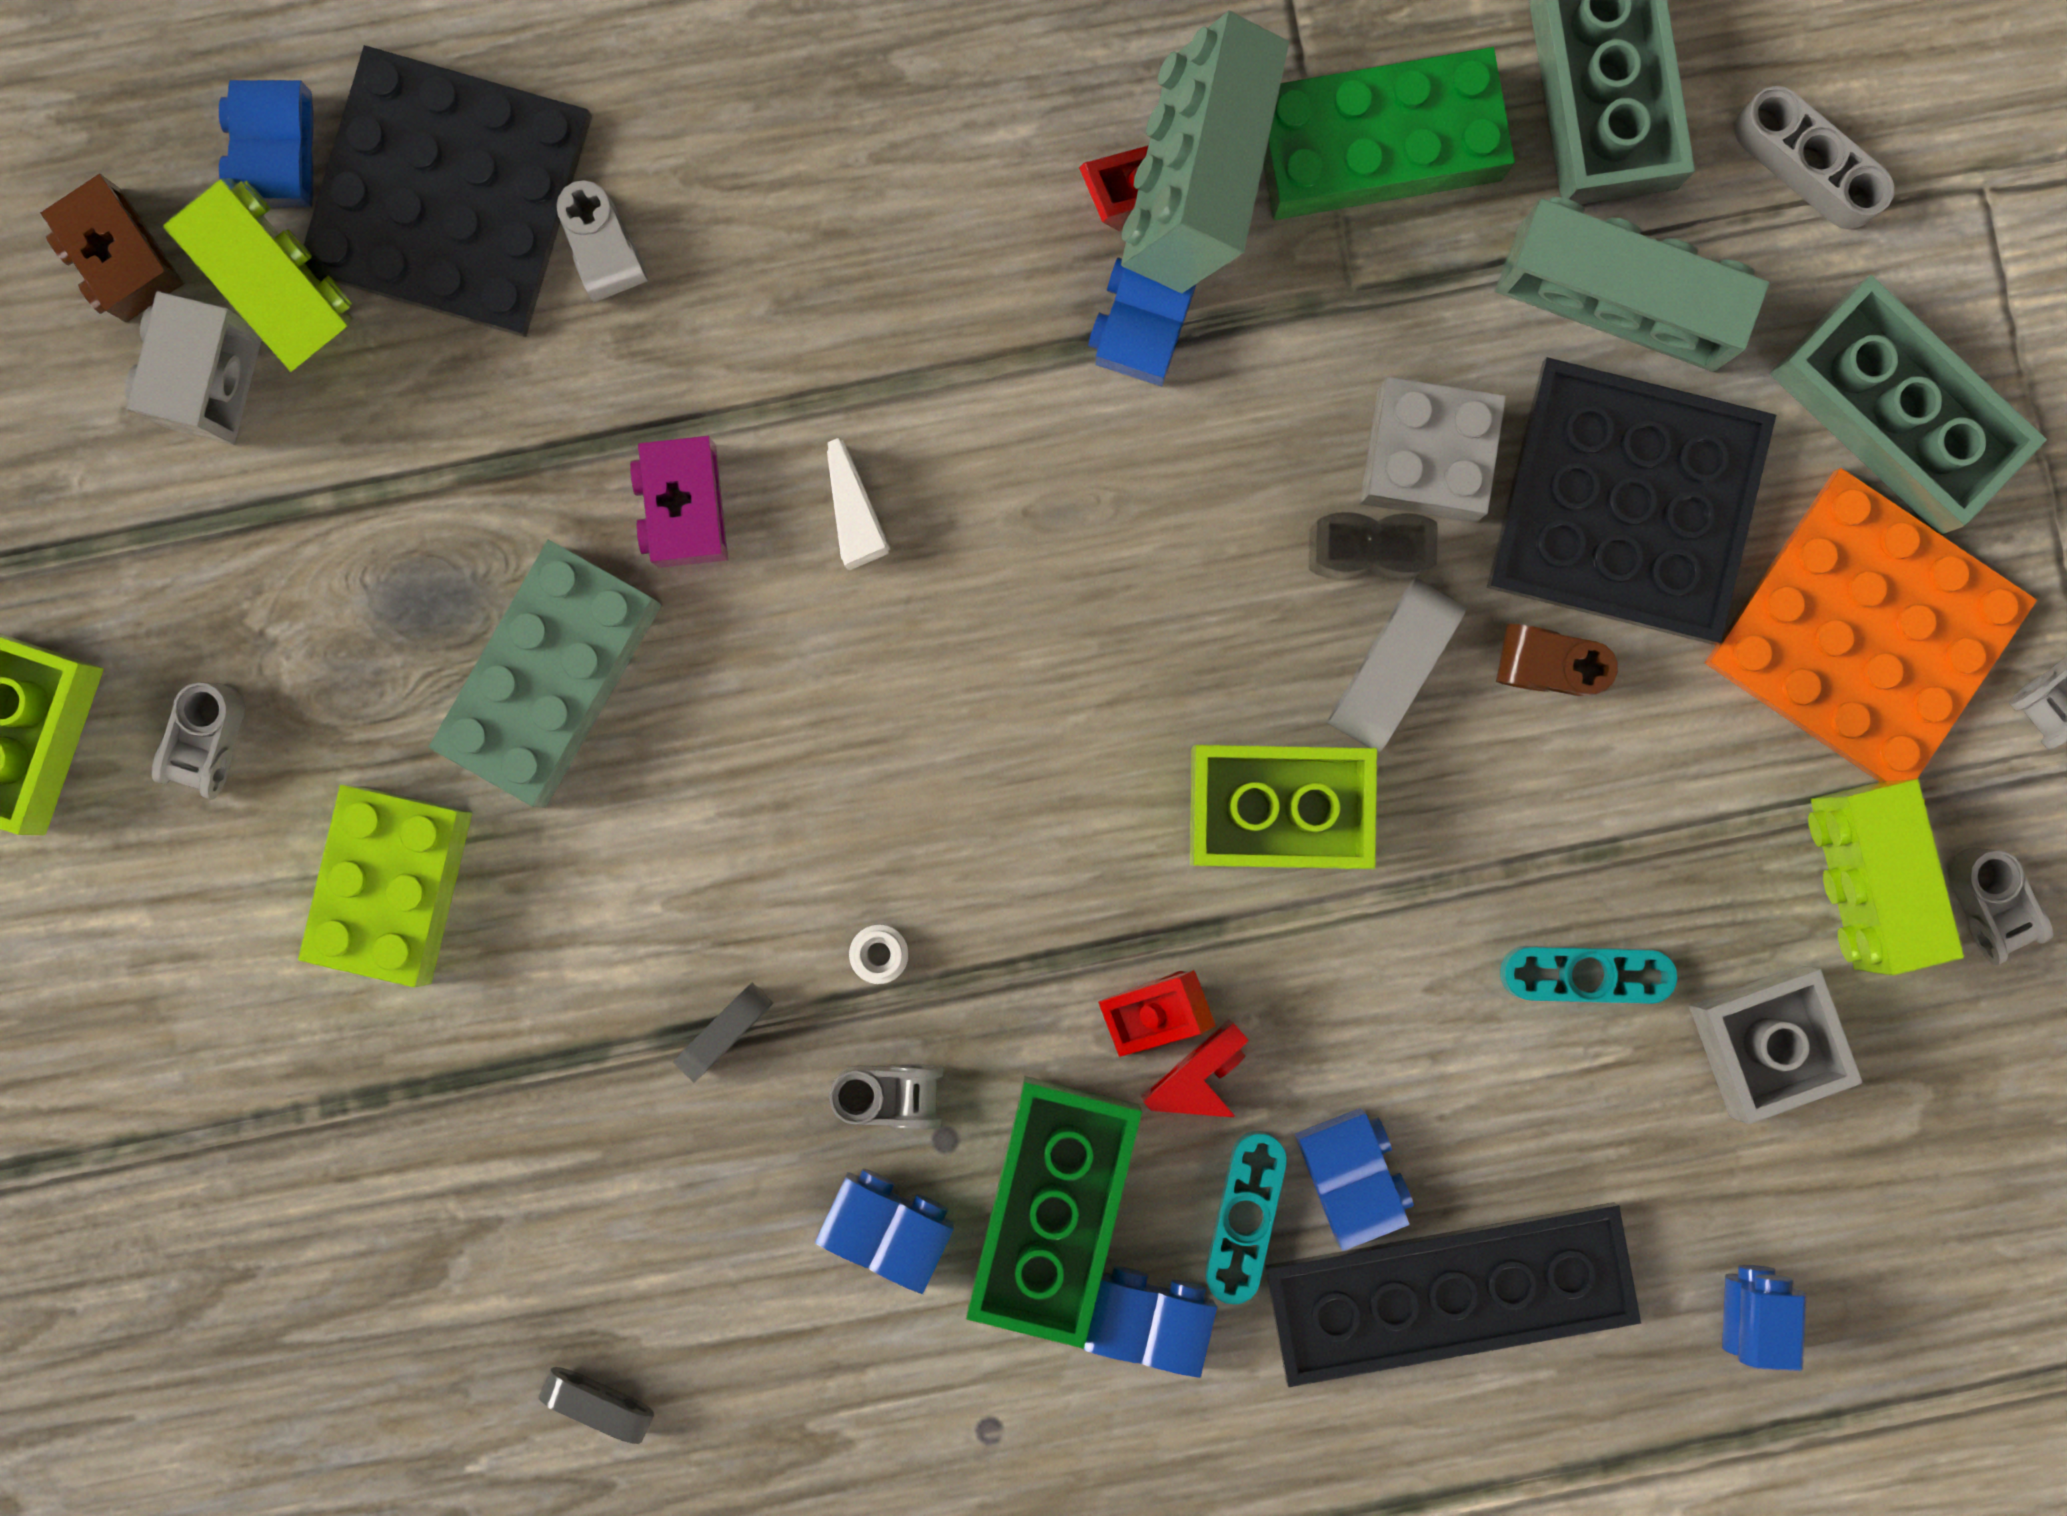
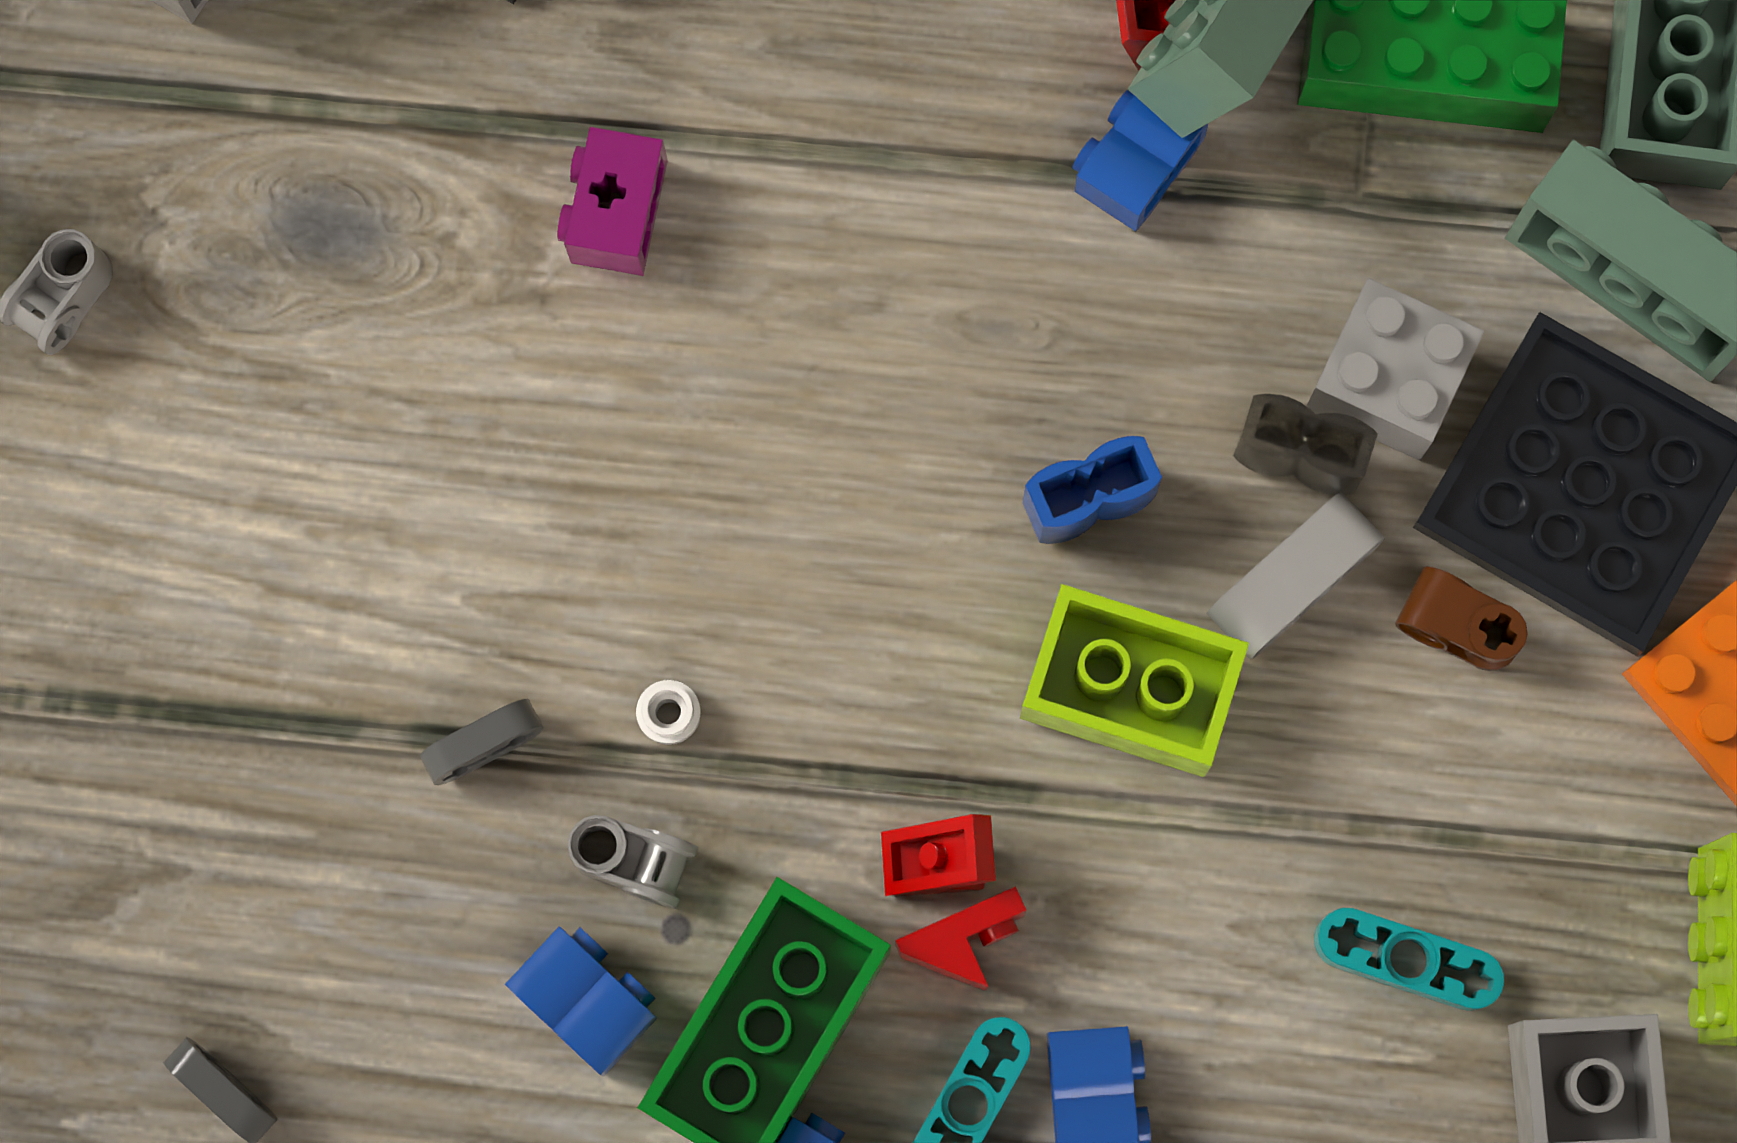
camera: 20 degrees right, 10 degrees down
(385, 886) = (190, 487): lime brick -> none
(545, 675) = (423, 327): sand green brick -> none
(857, 524) = (783, 276): white slope -> none
(1208, 635) = (1106, 486): none -> blue brick

